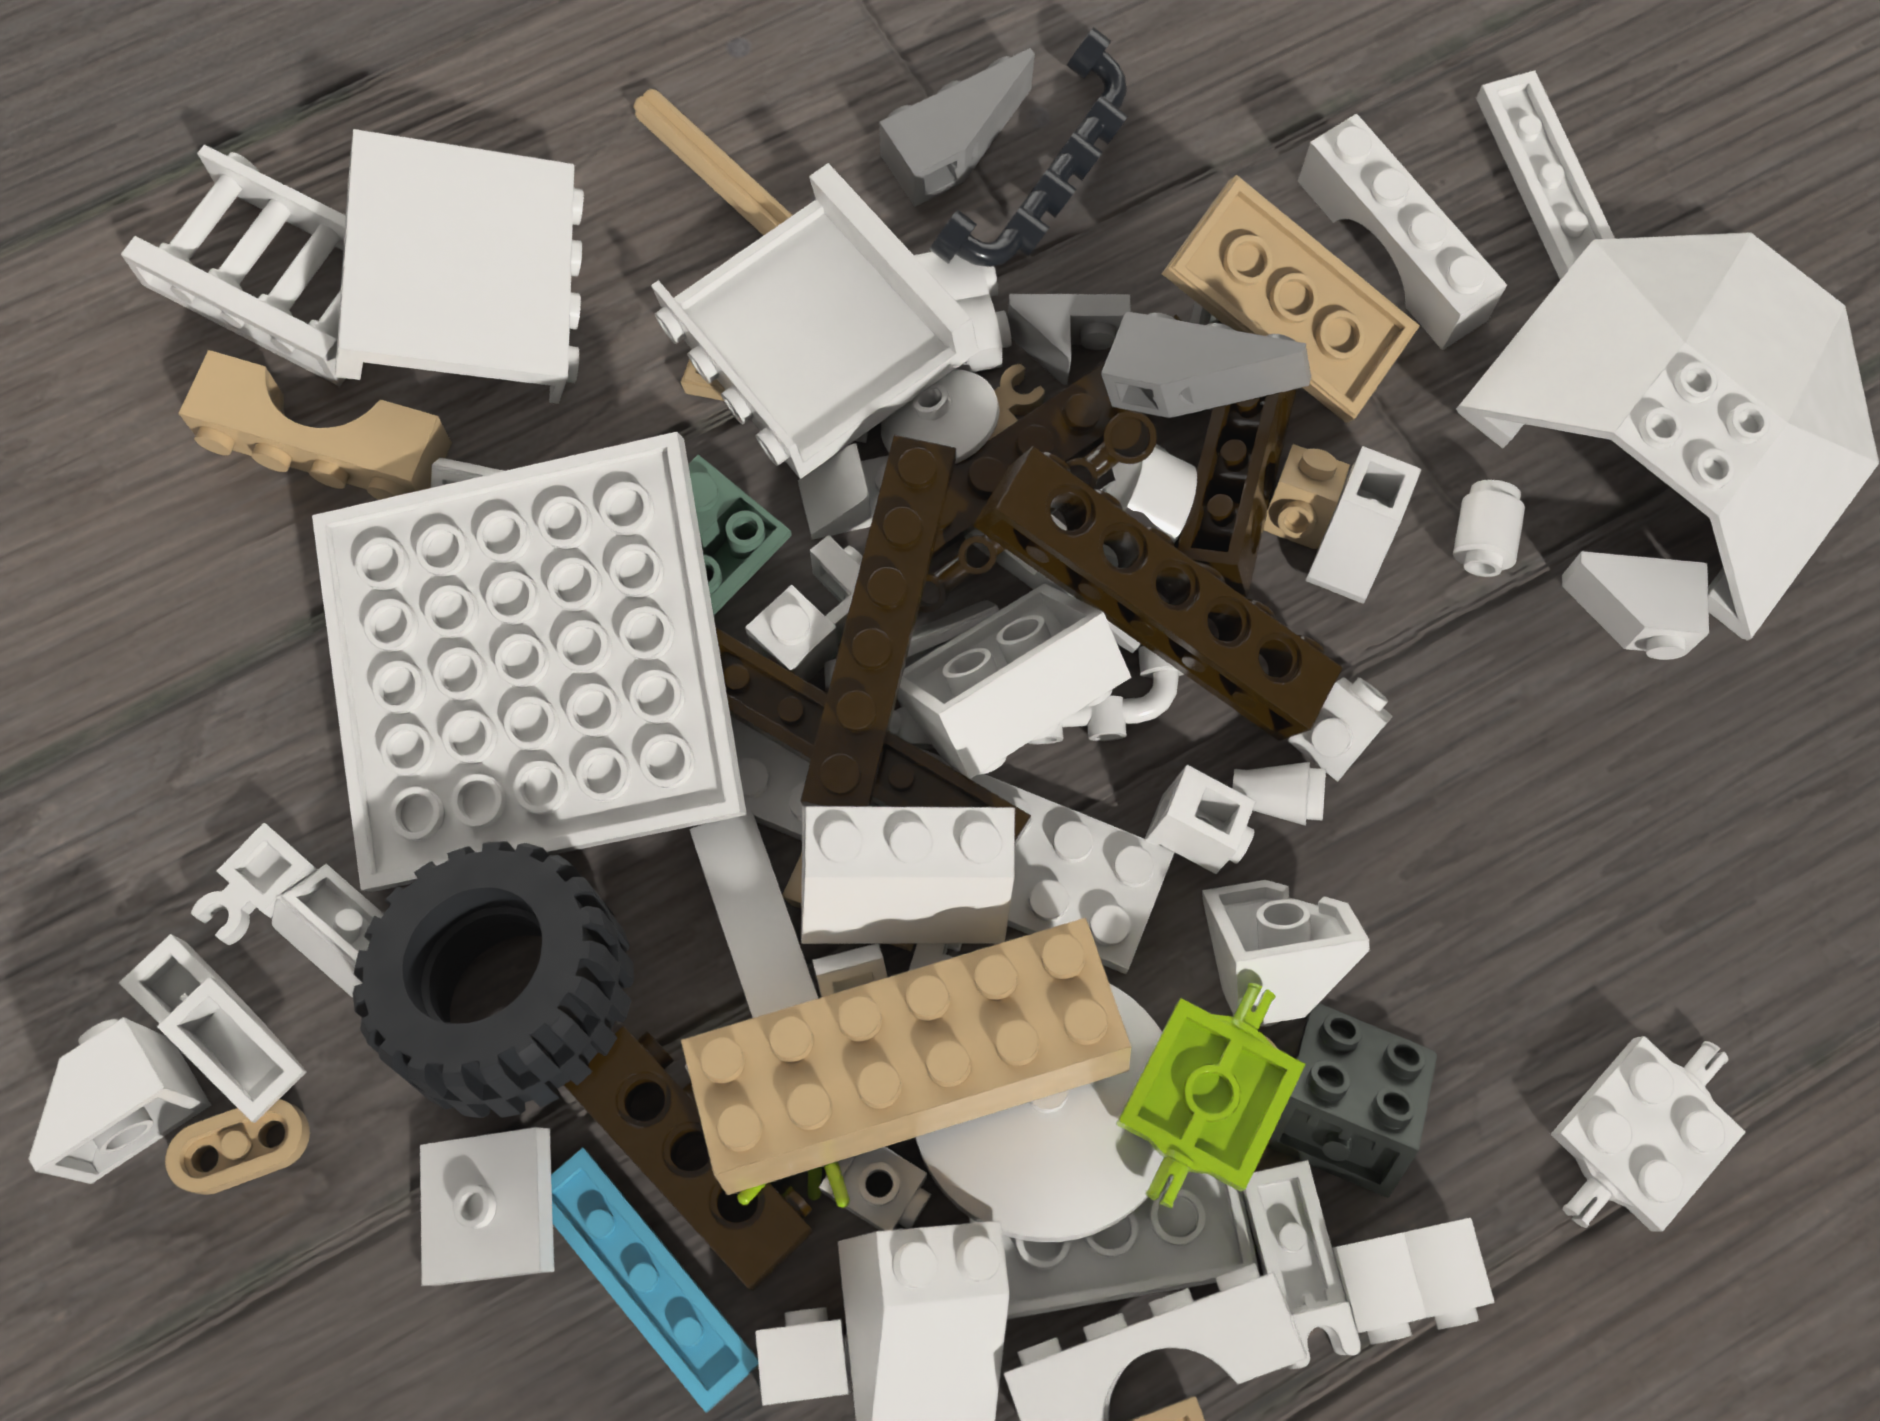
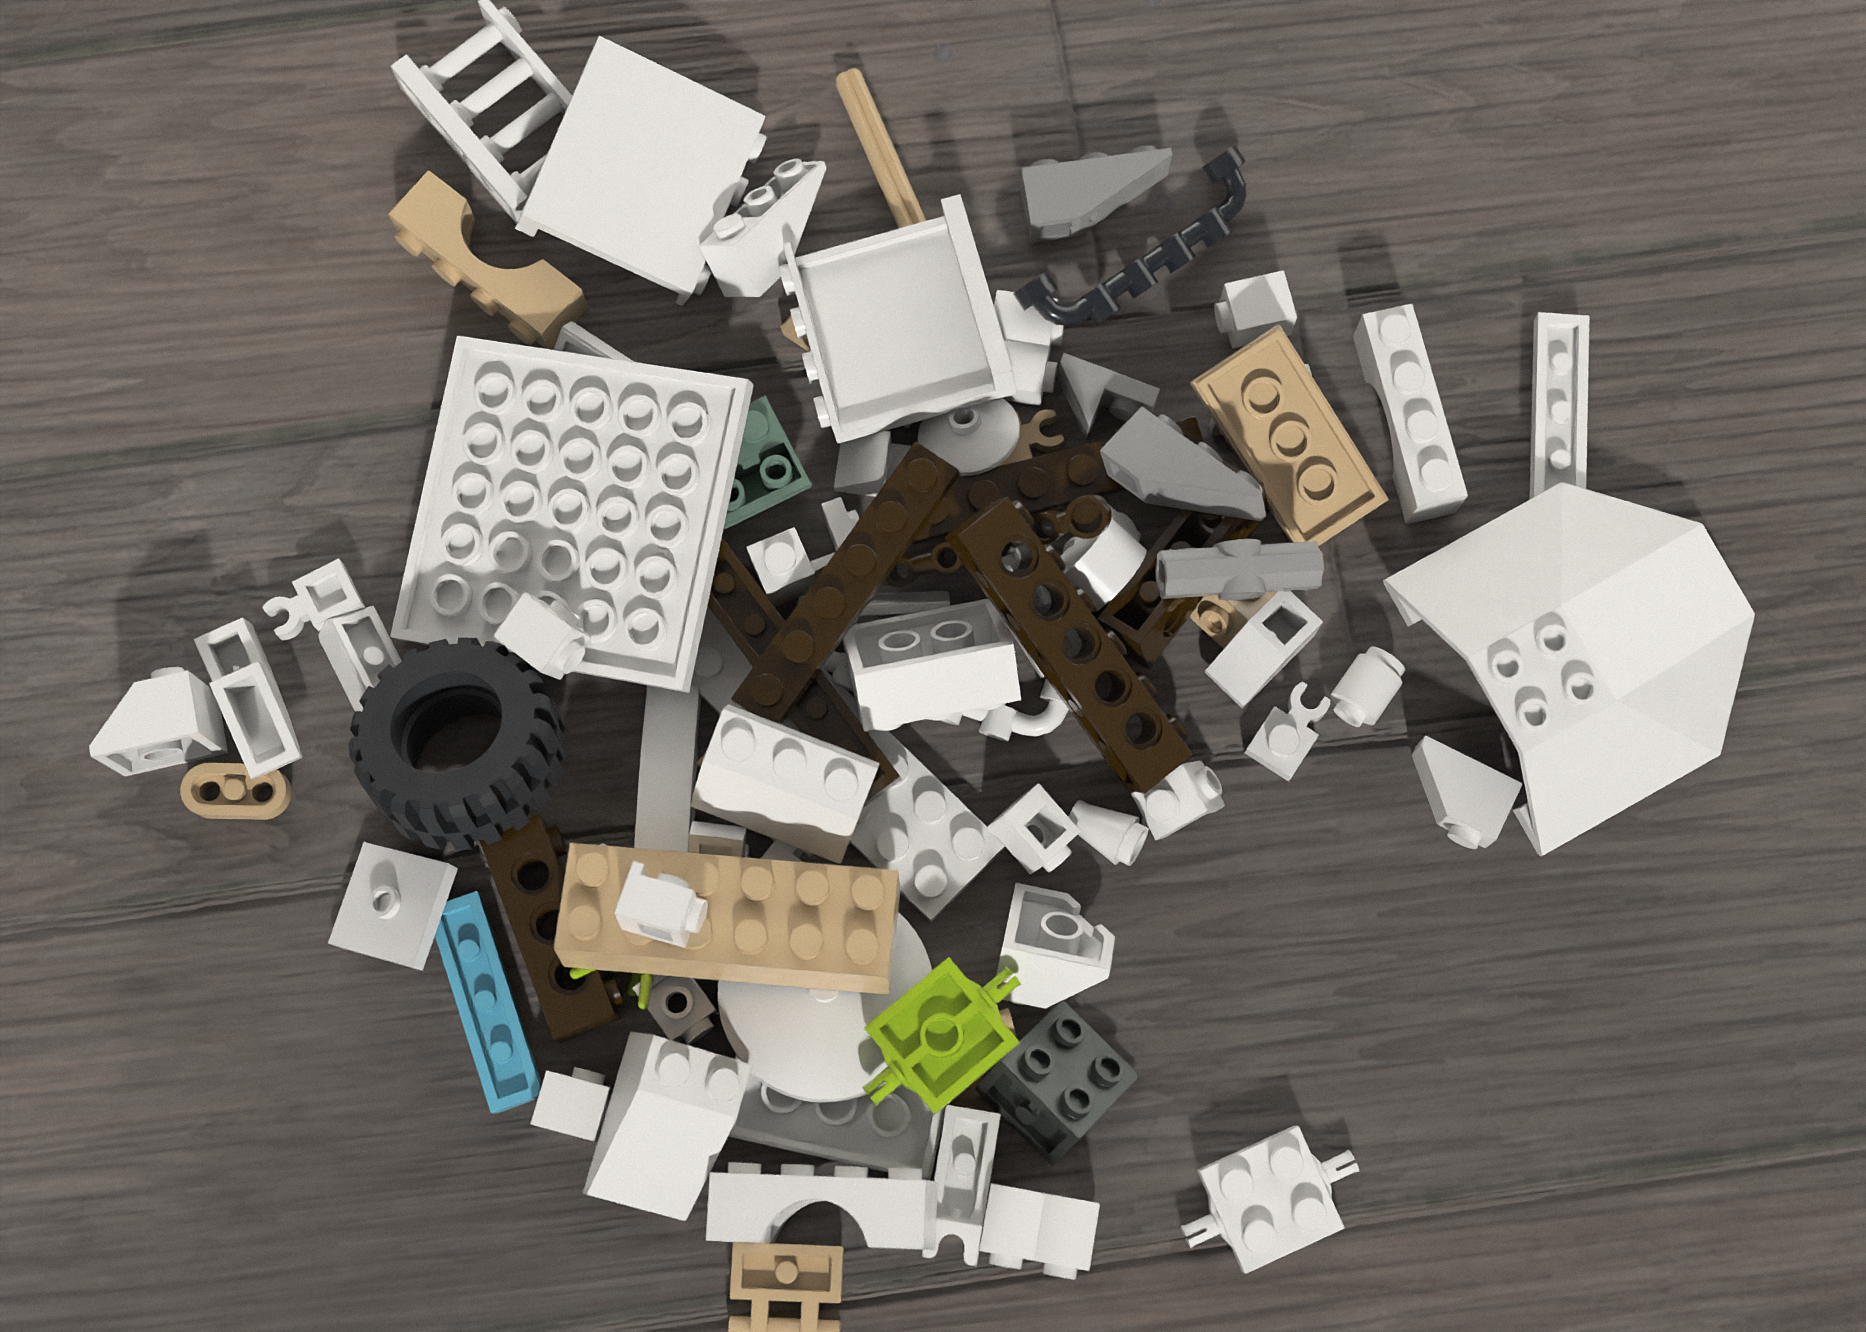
camera: 25 degrees right, 5 degrees up
(550, 810) = (544, 635): none -> white brick
(613, 301) = (749, 244): none -> white slope
(829, 1070) = (659, 907): none -> white brick
(1187, 182) = (1254, 307): none -> white brick
(1311, 442) = (1239, 569): none -> light grey piece
(1422, 617) = (1284, 737): none -> white plate

